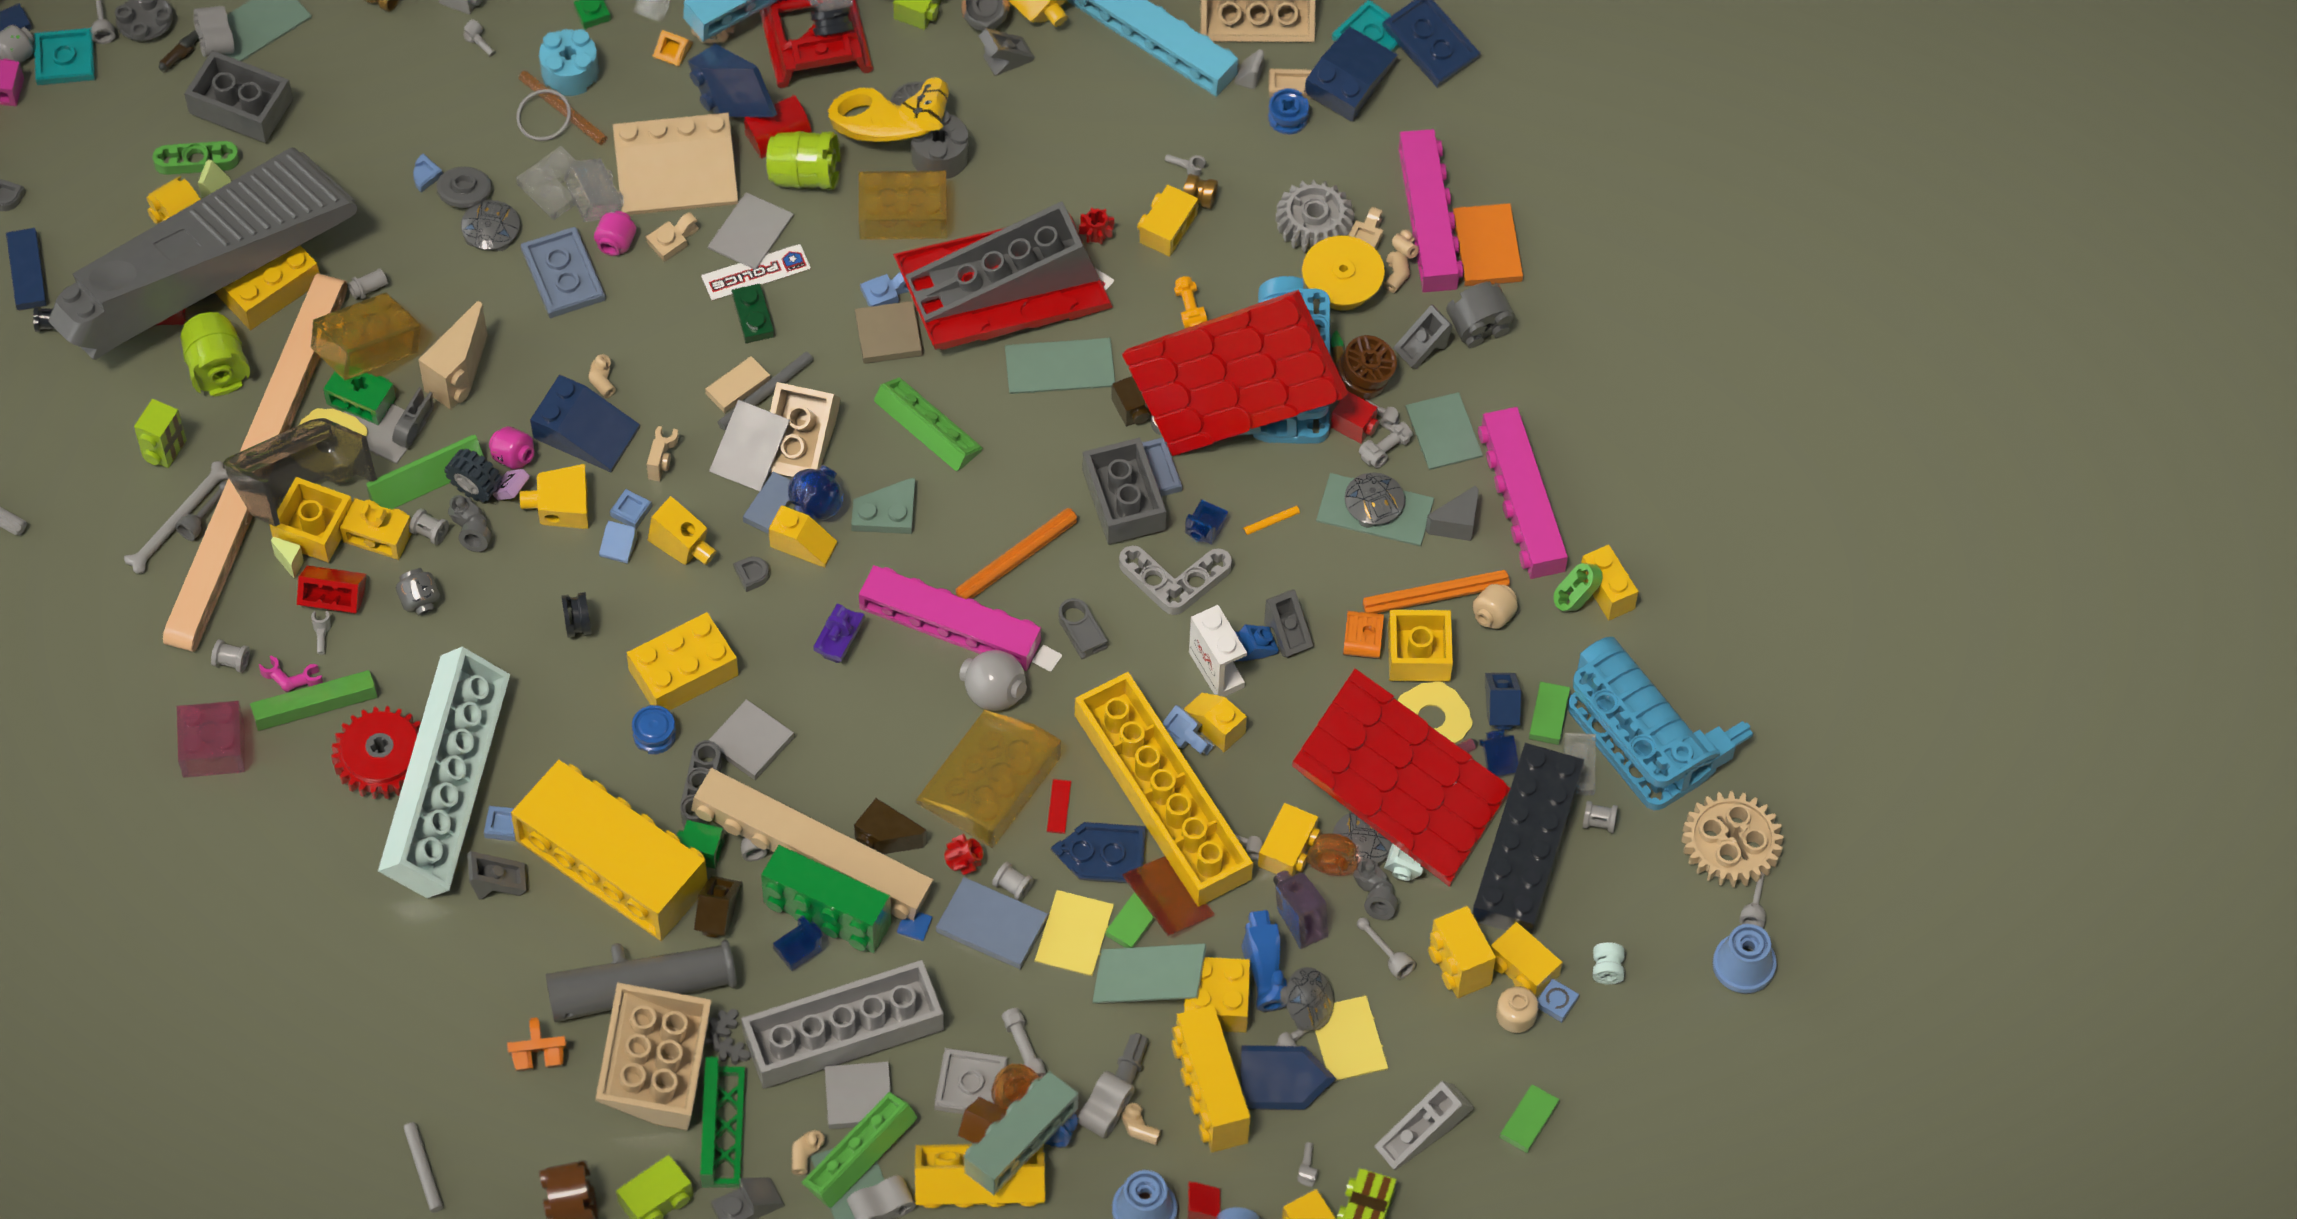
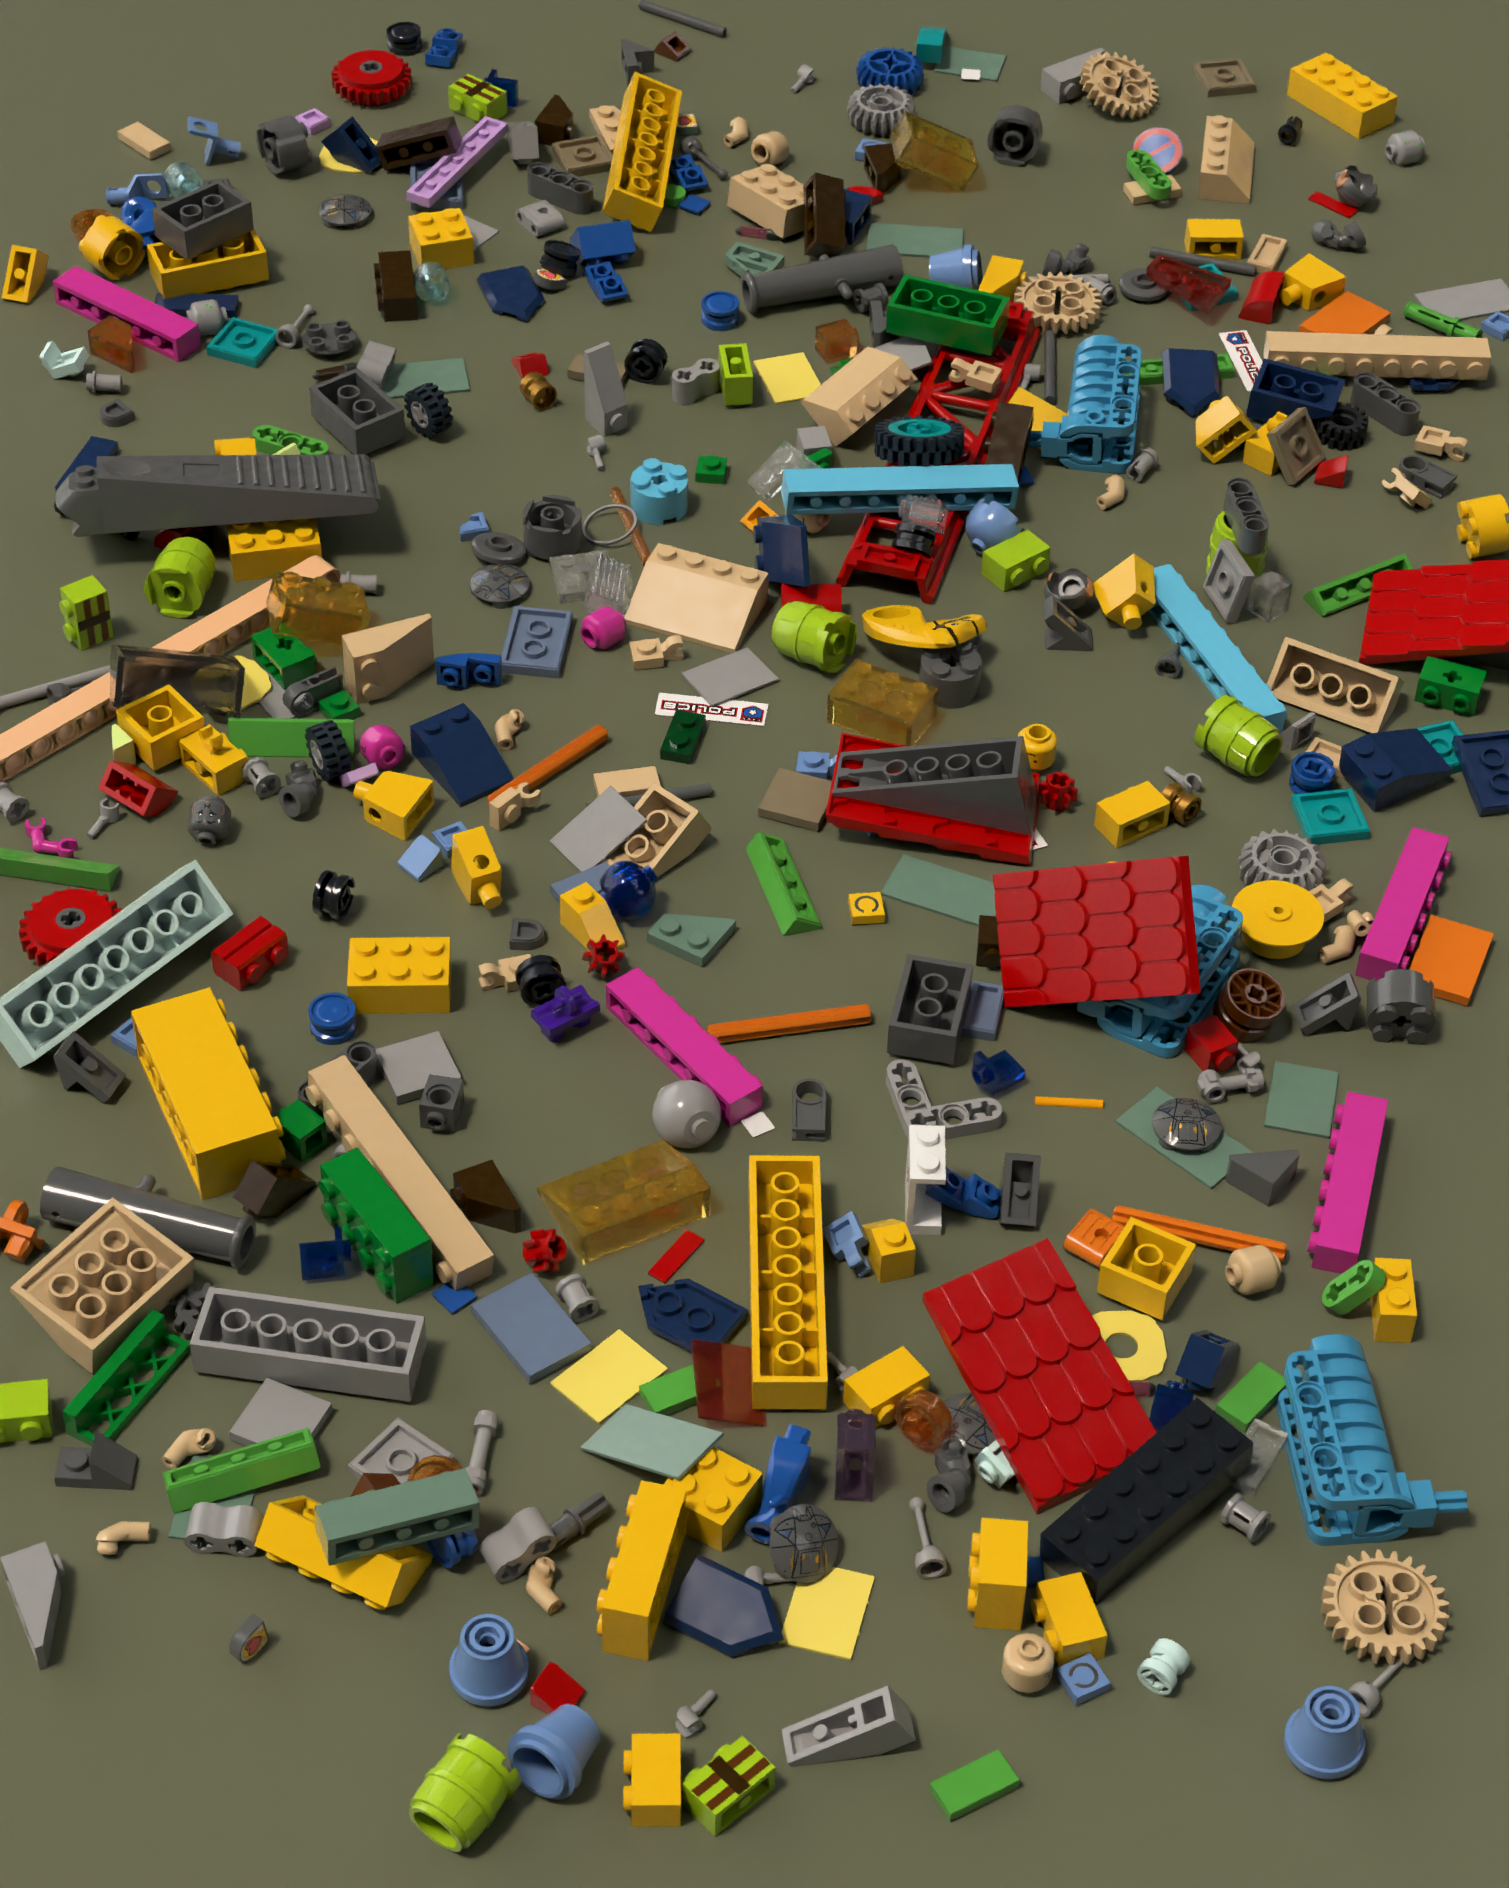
camera: 30 degrees right, 15 degrees down
(303, 64) = (428, 410): none -> black wheel
(441, 422) = (339, 706): none -> green plate
(502, 146) = (552, 527): none -> dark grey brick
(520, 337) = (461, 669): none -> blue slope
(545, 702) = (250, 953): none -> red brick
(661, 398) = (557, 760): none -> orange axle
(766, 614) = (502, 975): none -> tan plate
(792, 754) = (441, 1103): none -> dark grey brick
(799, 613) = (539, 979): none -> black wheel
(840, 560) = (596, 961): none -> red gear
(1009, 414) = (866, 908): none -> yellow tile
(1055, 187) = (1040, 745): none -> yellow head
(1108, 44) = (1171, 664): none -> dark grey hinge
(1215, 103) = (1239, 737): none -> lime piece
(1322, 145) = (1330, 816): none -> teal tile

